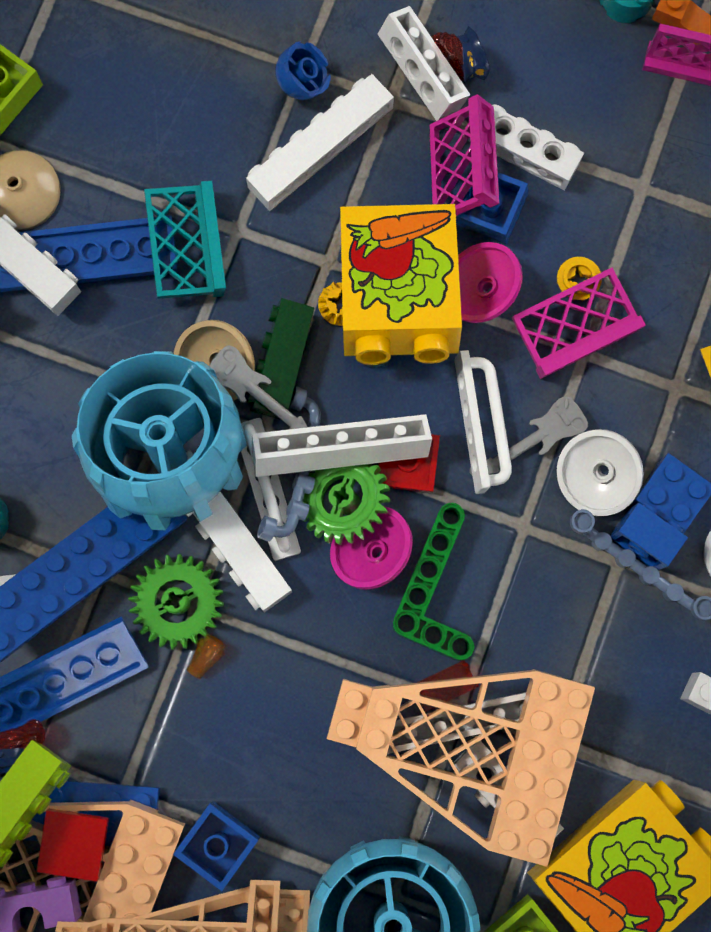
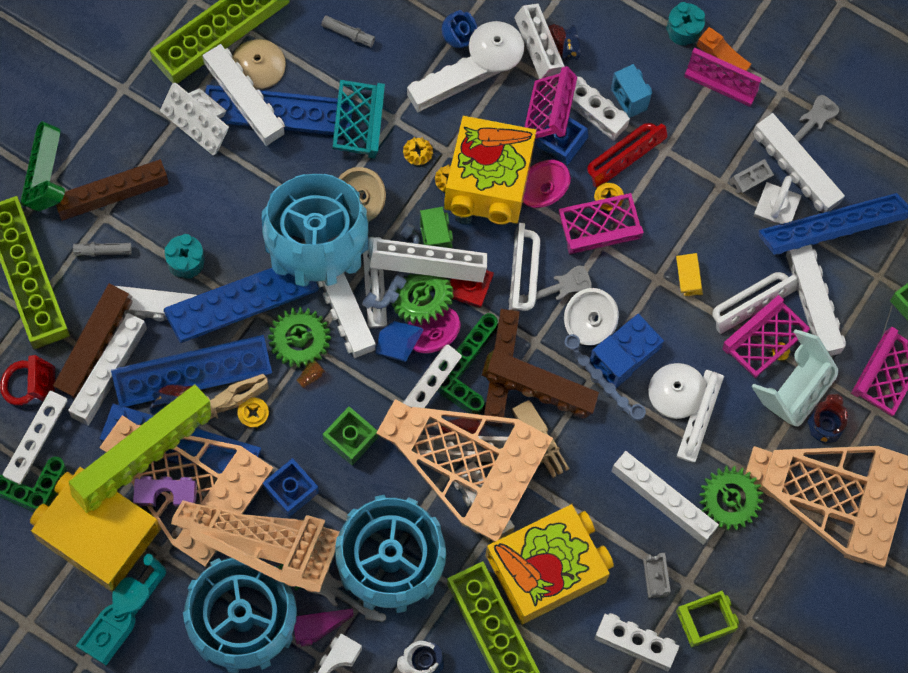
camera: 10 degrees right, 10 degrees down
(72, 844) = (201, 461): red tile -> none
(92, 726) = (230, 399): none -> tan arm
(121, 738) = (253, 403): none -> yellow gear
(146, 111) = (346, 30): none -> light grey pin
(240, 378) = (371, 201): light grey piece -> none
(278, 282) = (413, 157): none -> yellow gear
(283, 352) = (403, 203): dark green brick -> none
(287, 742) = (350, 436): none -> bright green brick
(324, 574) = (398, 340): none -> blue slope
(339, 393) = (435, 228): none -> bright green brick
(358, 100) = (496, 55): none -> white dish
(401, 586) = (447, 354): none -> white piece
(485, 581) = (504, 343): none -> reddish brown brick
(550, 598) = (539, 384): none -> reddish brown brick
(553, 659) = (527, 413): none -> tan arm
(576, 109) = (631, 90): none -> dark azure brick
(593, 211) = (600, 177): none -> red piece

